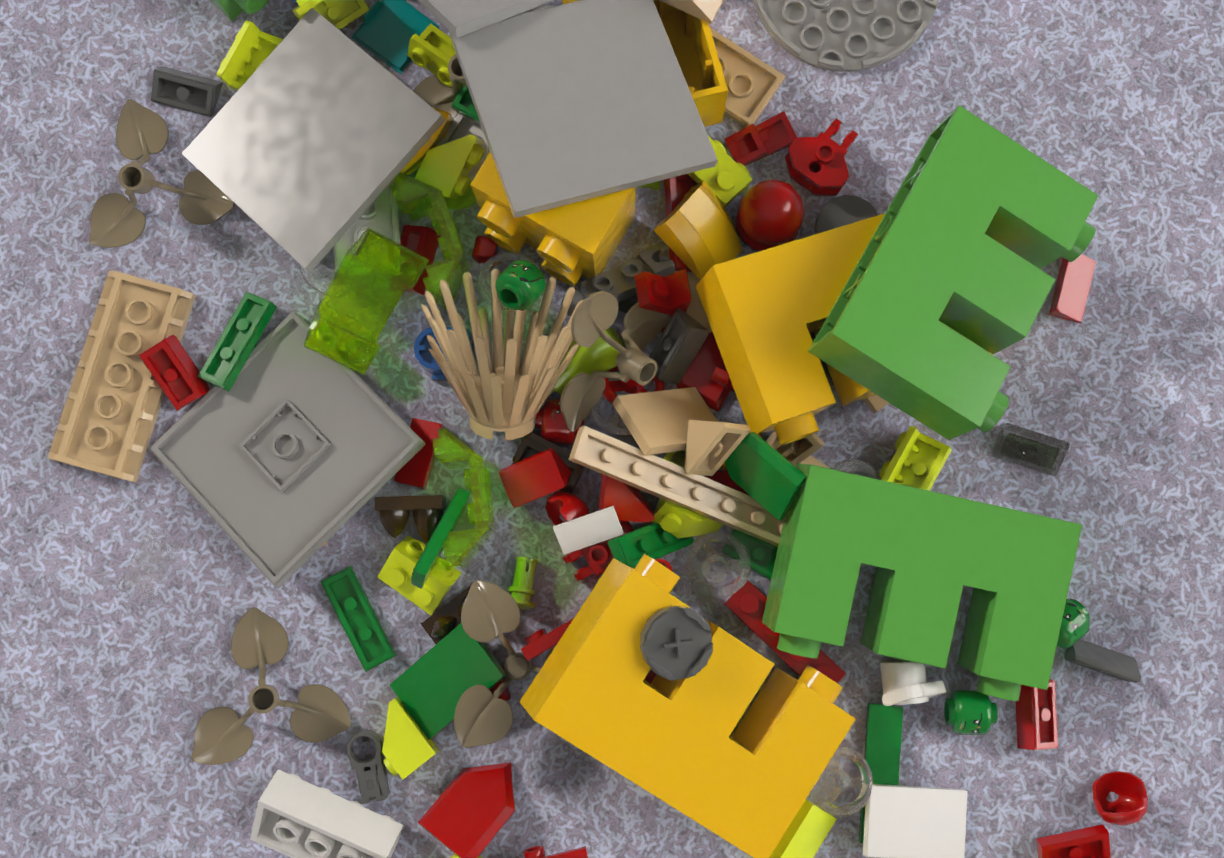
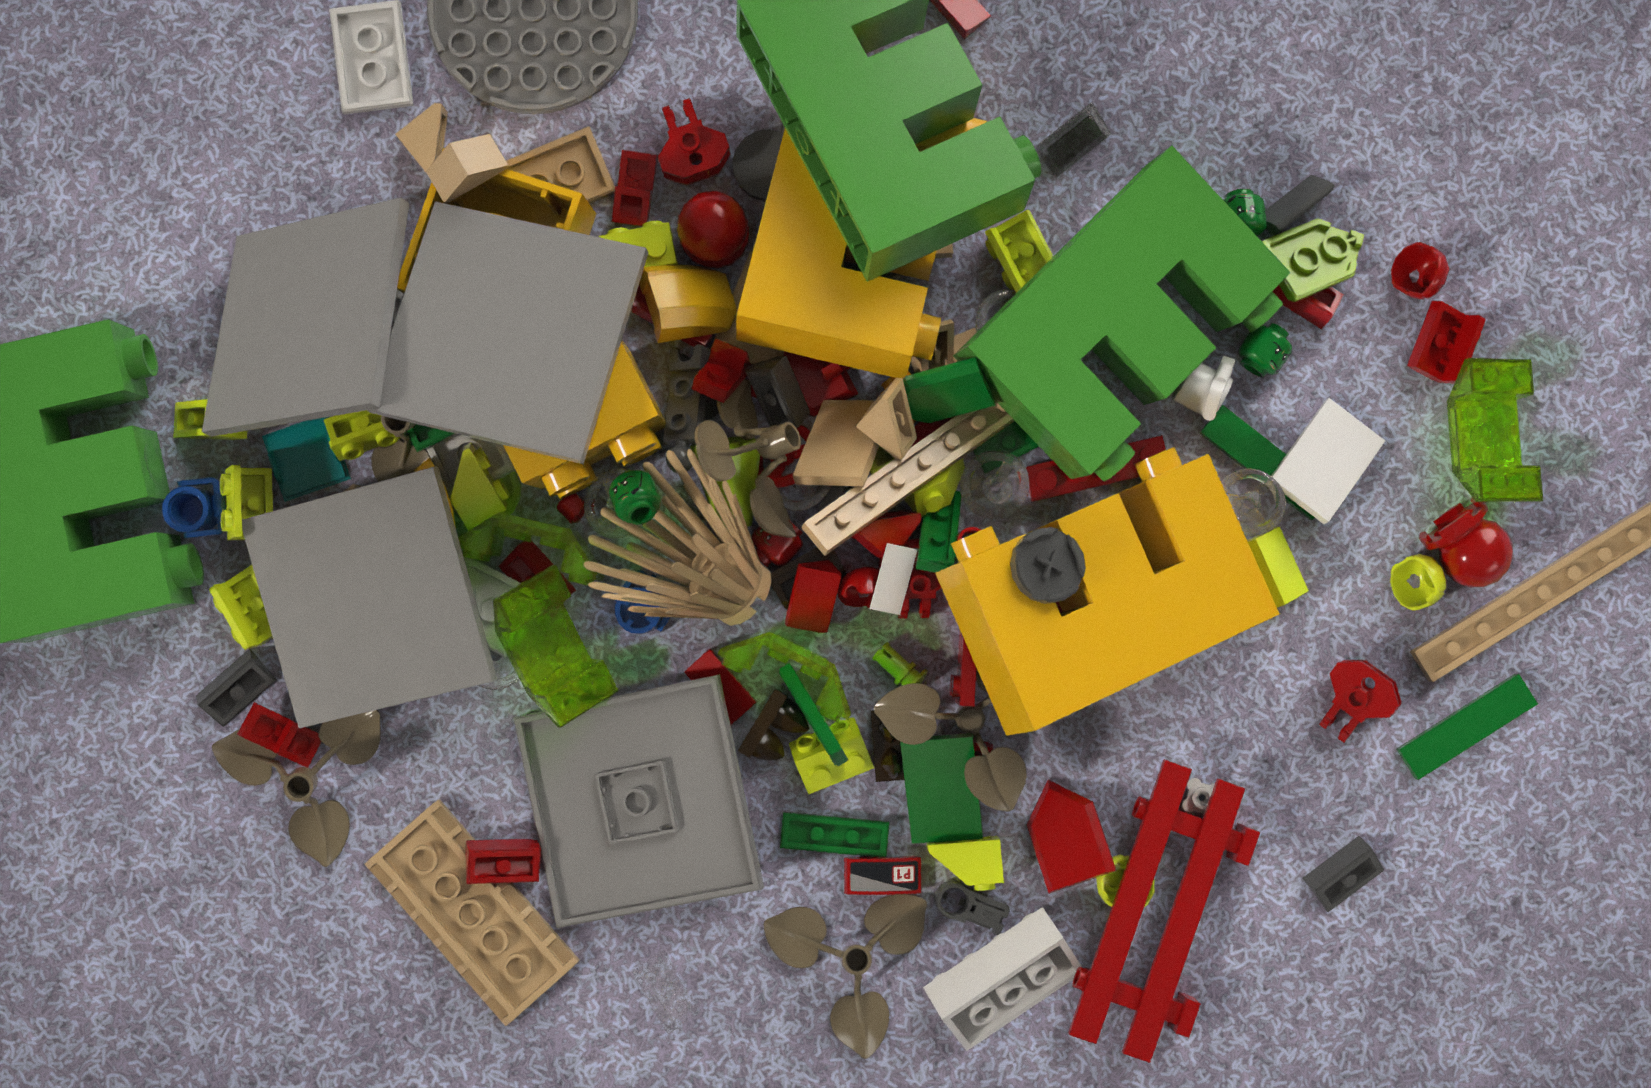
camera: 60 degrees left, 5 degrees up
(169, 143) = (280, 735): none -> red slope
(237, 341) = (510, 786): green tile -> none
(349, 678) = (882, 875): none -> slope
(1072, 704) = (1315, 257): none -> lime tile

